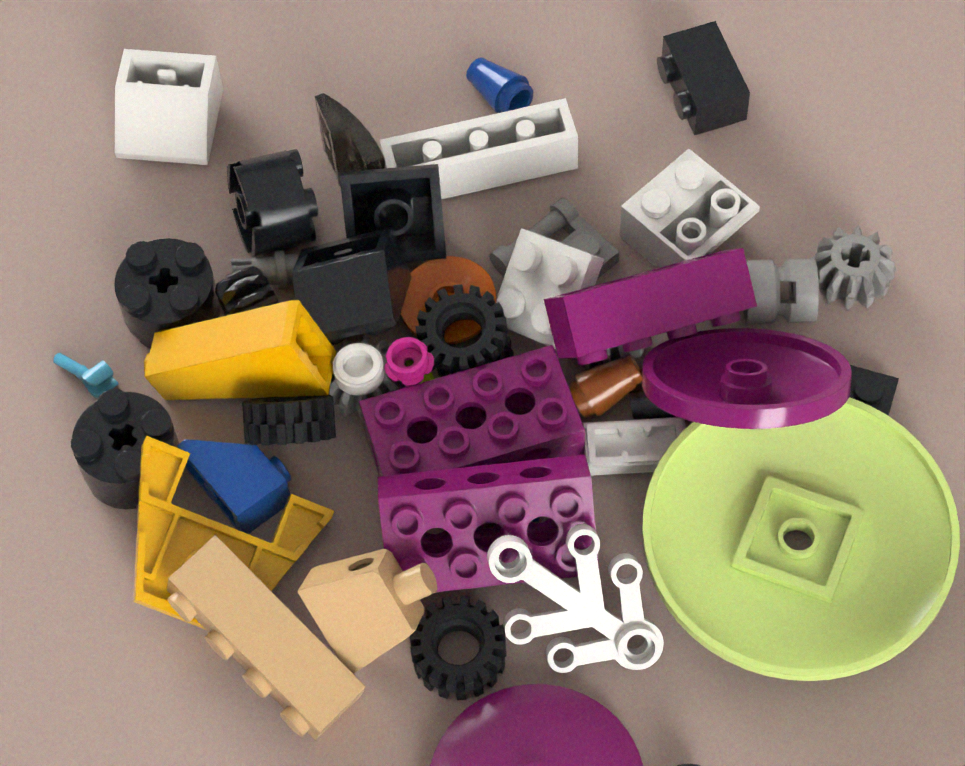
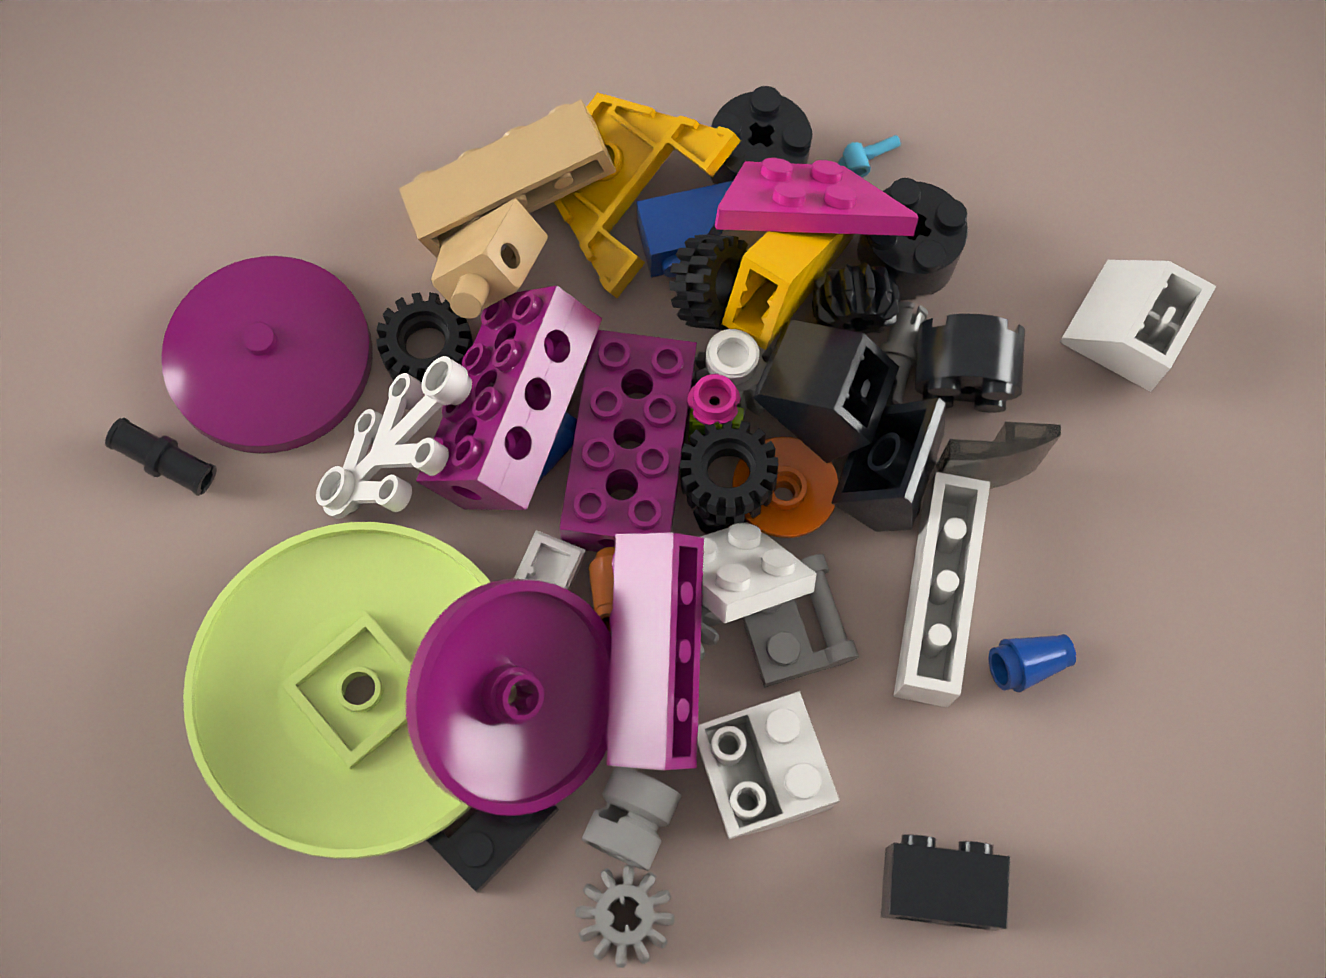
camera: 110 degrees right, 10 degrees up
(189, 351) = (810, 200): none -> dark pink wing

